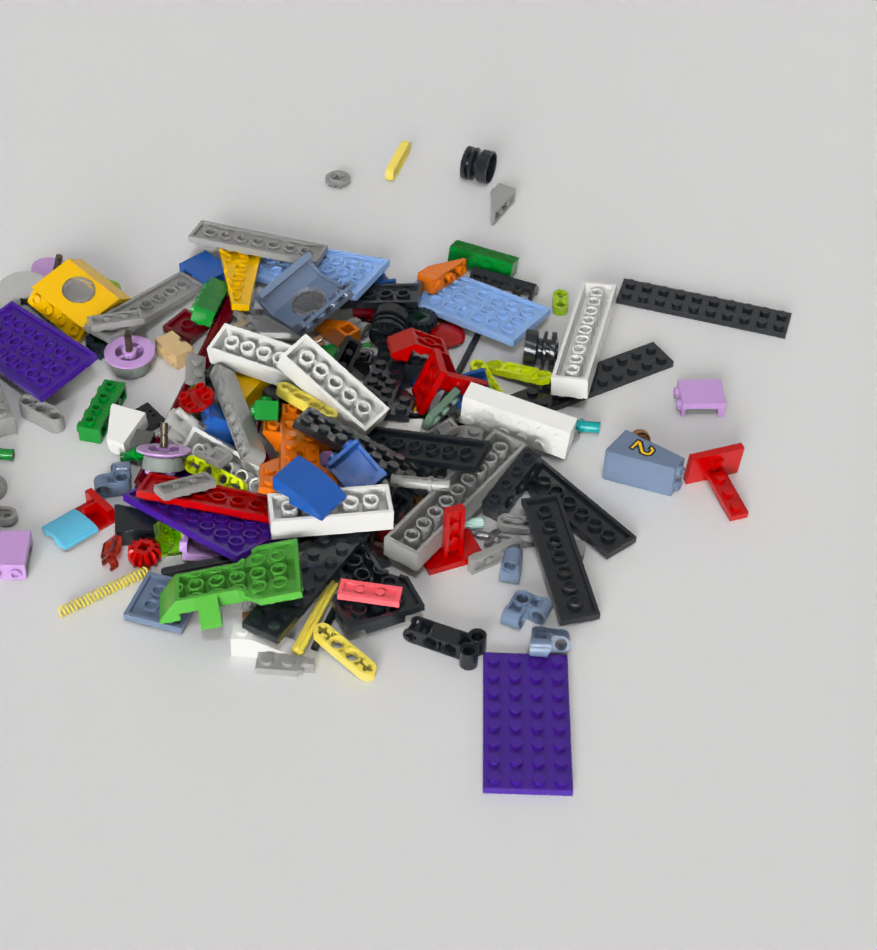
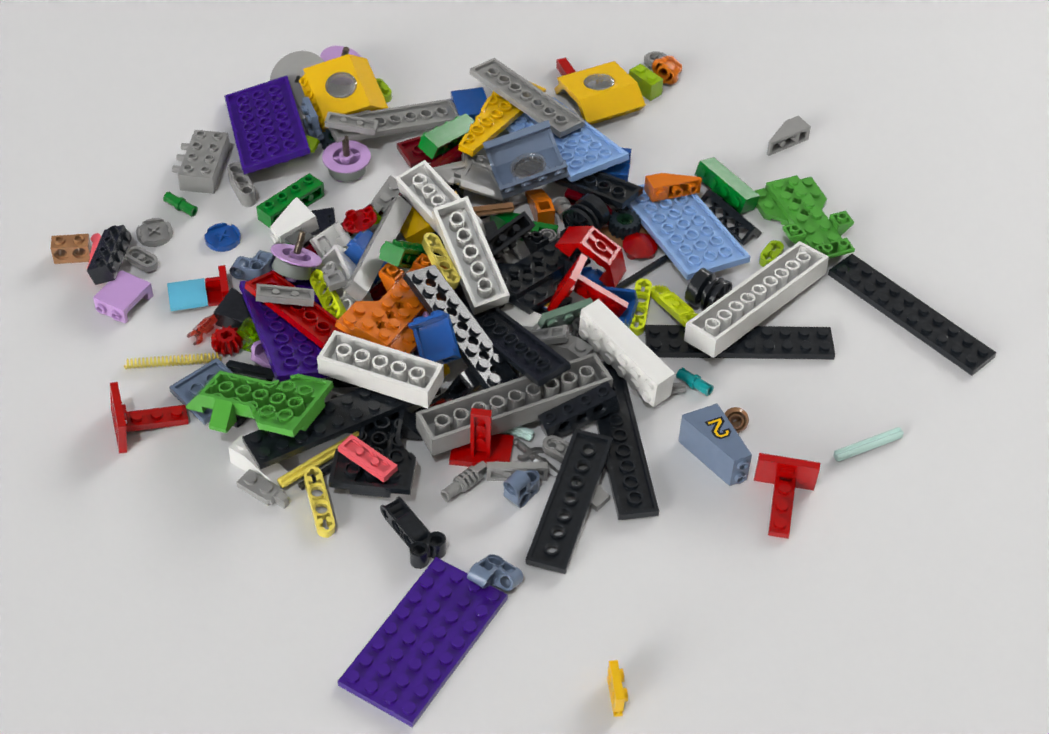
camera: 30 degrees right, 5 degrees up
(59, 467) = (222, 237): none -> blue tile
(68, 327) = (311, 119): none -> sand blue plate
(110, 661) = (141, 419): none -> red piece
(172, 349) = (388, 165): tan brick -> none
(266, 213) = (564, 66): none -> red piece
(308, 488) = (366, 340): blue slope -> none
(317, 216) = (602, 92): none -> yellow panel
(345, 199) = (648, 82): none -> lime brick
(355, 183) = (667, 68): none -> orange piece
(398, 160) = (724, 61): light yellow beam -> none
(426, 483) = (490, 379): light grey pin -> none
(457, 582) = (465, 481): none -> light grey hinge
(478, 164) = (792, 91): black wheel -> none
(526, 606) = (492, 534): sand blue piece -> none
(554, 256) = (799, 207): none -> bright green piece
(700, 395) = (832, 399): lavender panel -> none
(715, 685) = (617, 693): none -> yellow plate
(751, 420) = (868, 444): none -> light aqua axle

